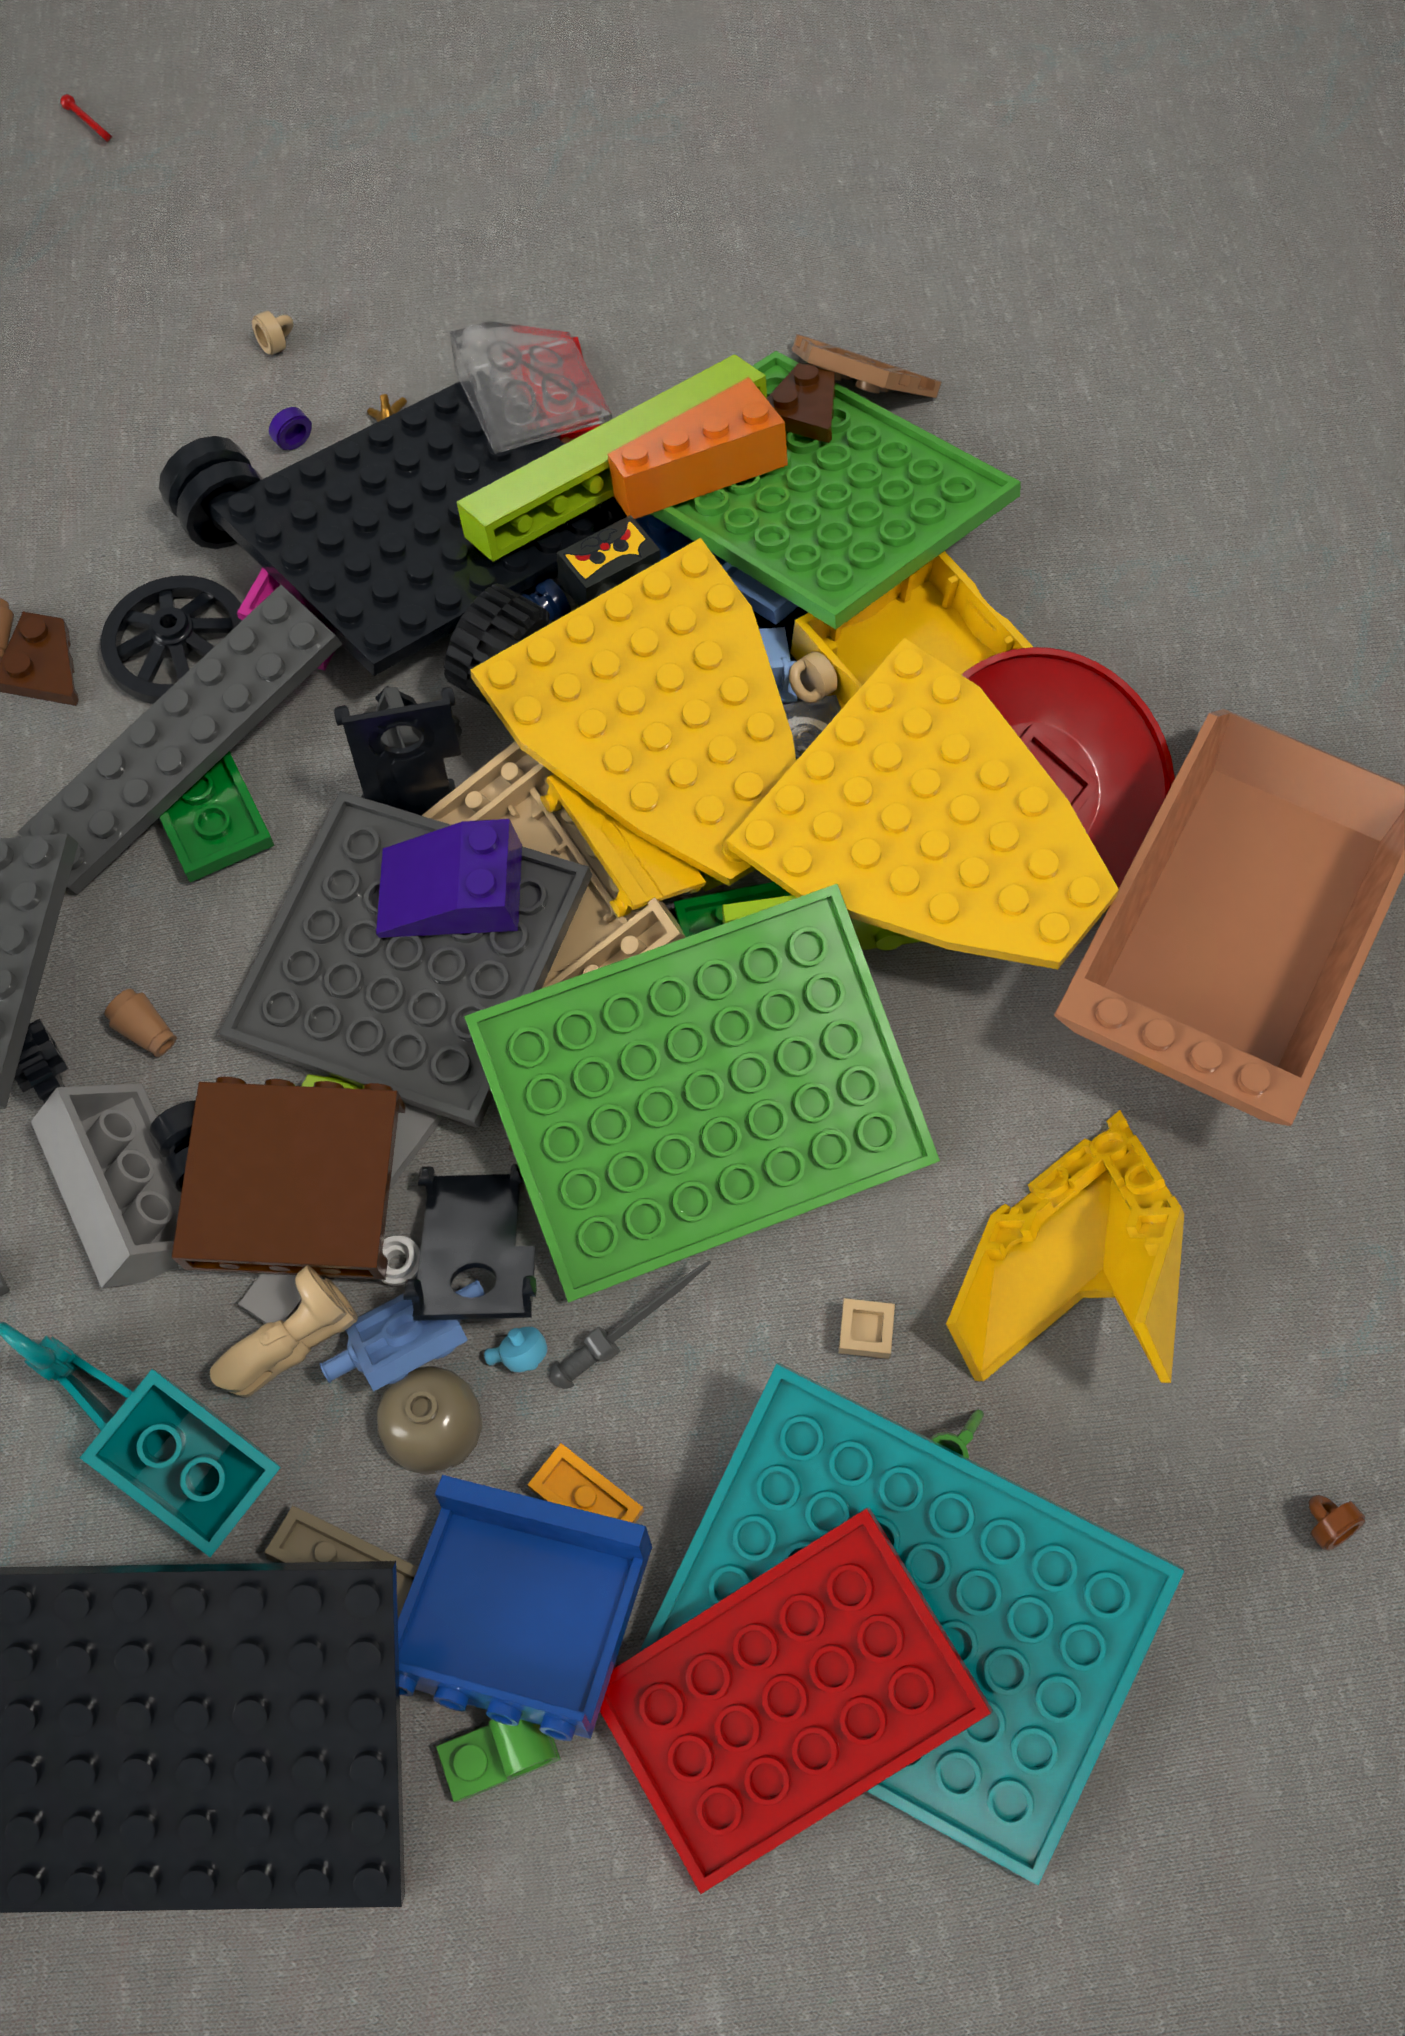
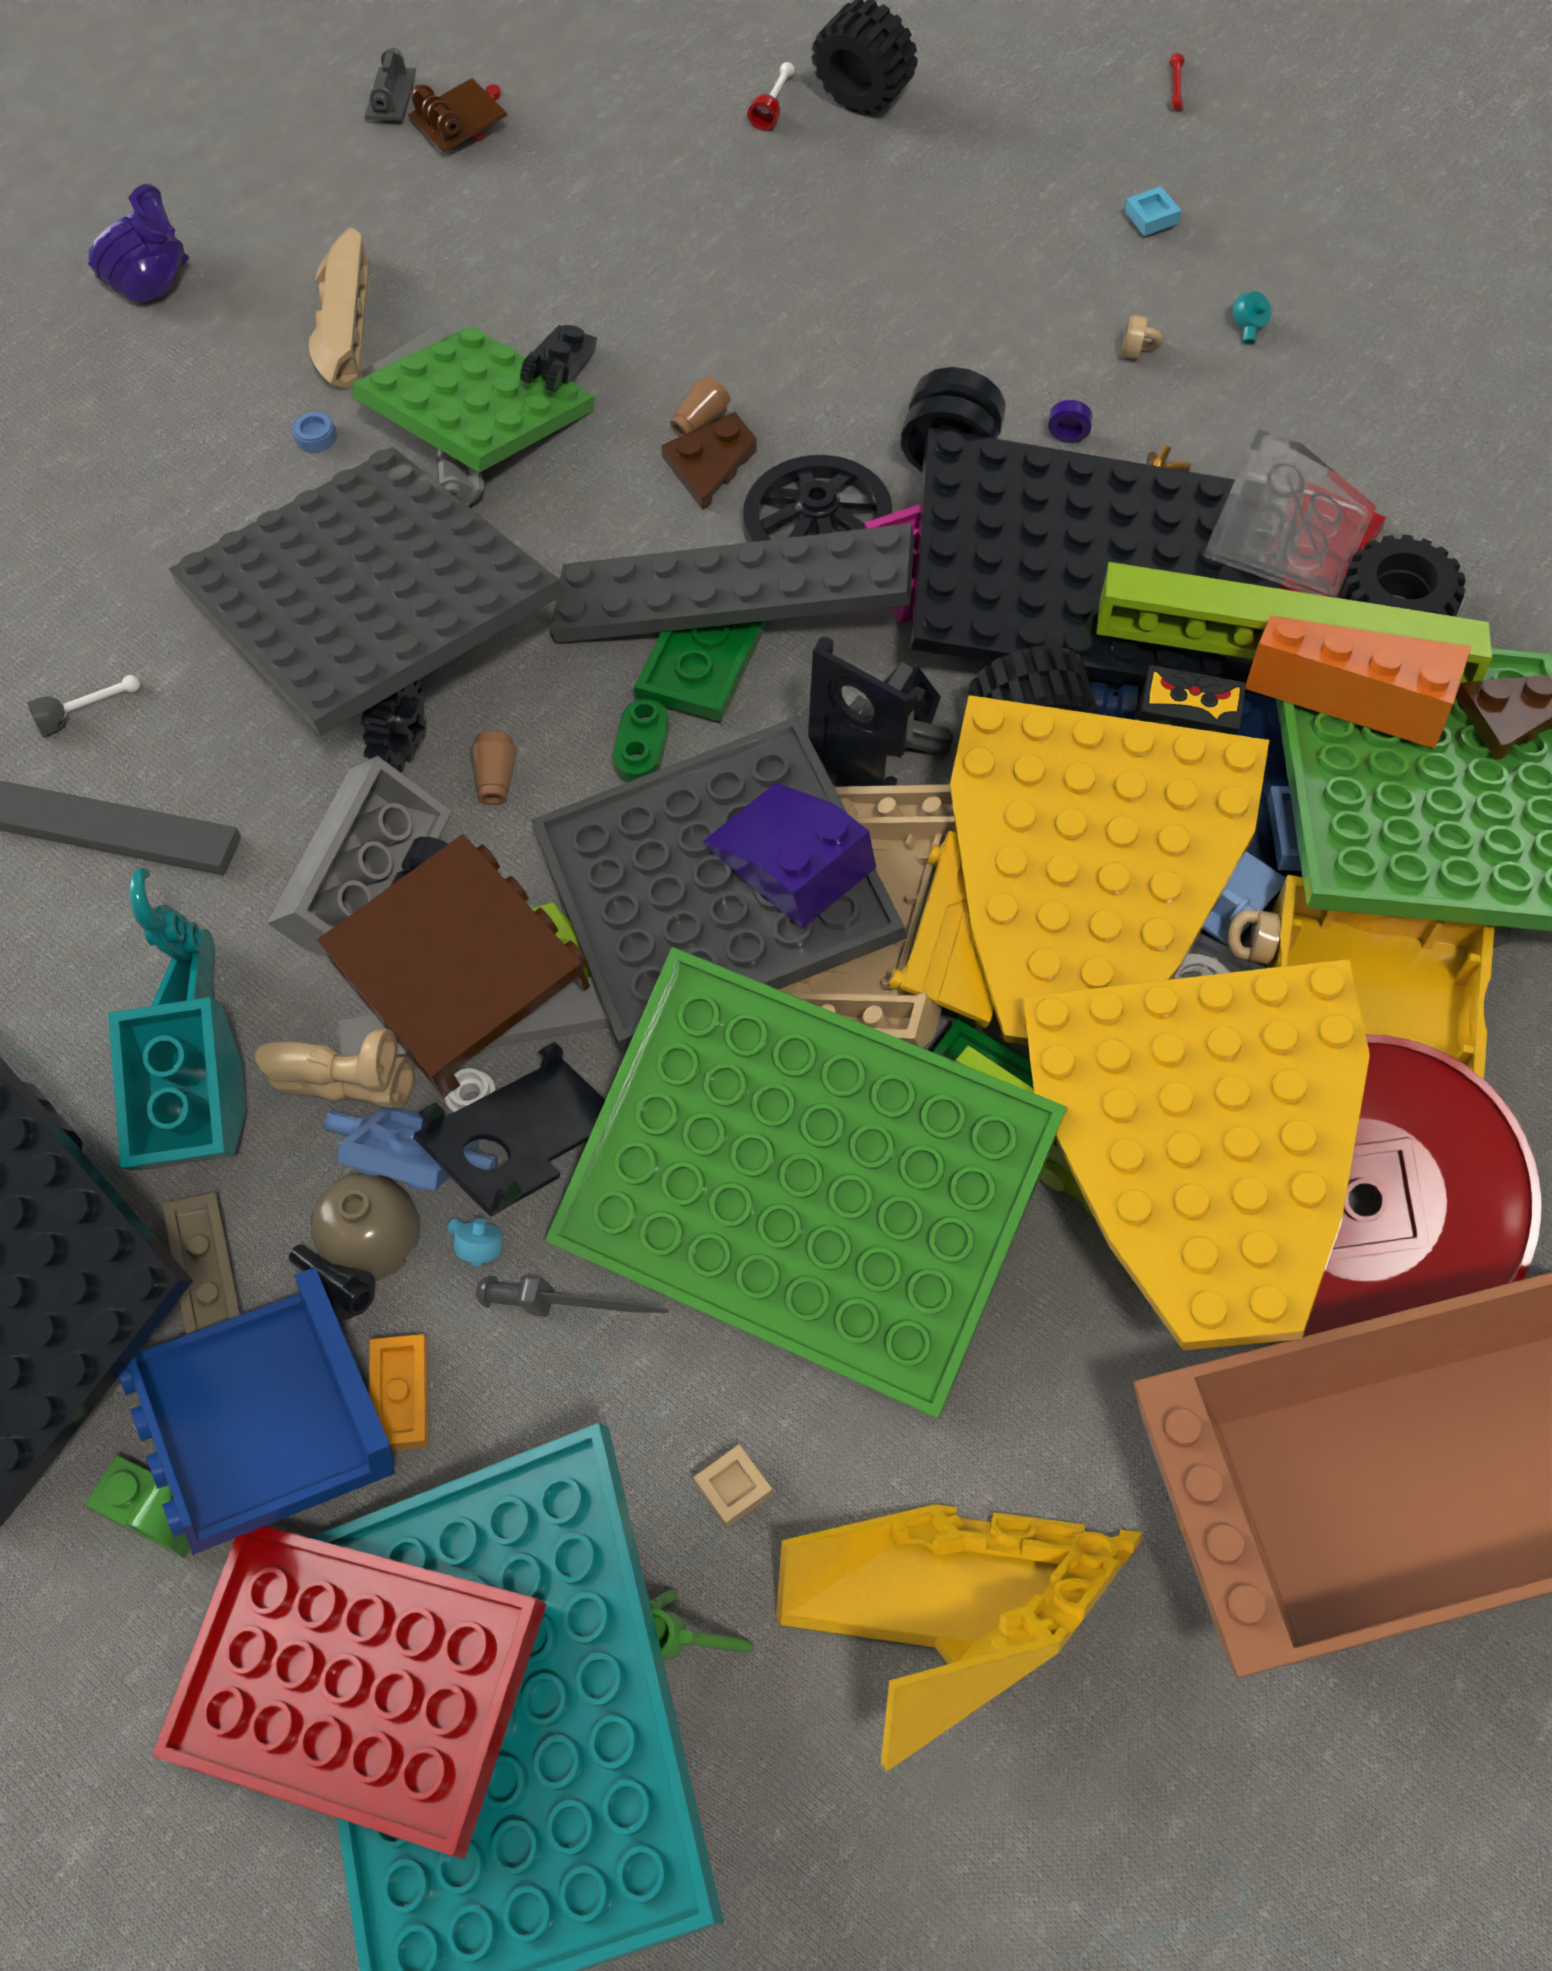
camera: 50 degrees right, 5 degrees down
(178, 229) = (1152, 211): none -> medium azure plate
(227, 907) = (641, 737): none -> green plate
(333, 257) = (1251, 314): none -> teal piece
(468, 1465) = (346, 1287): none -> black cone
(643, 367) = (1406, 570): none -> black tyre

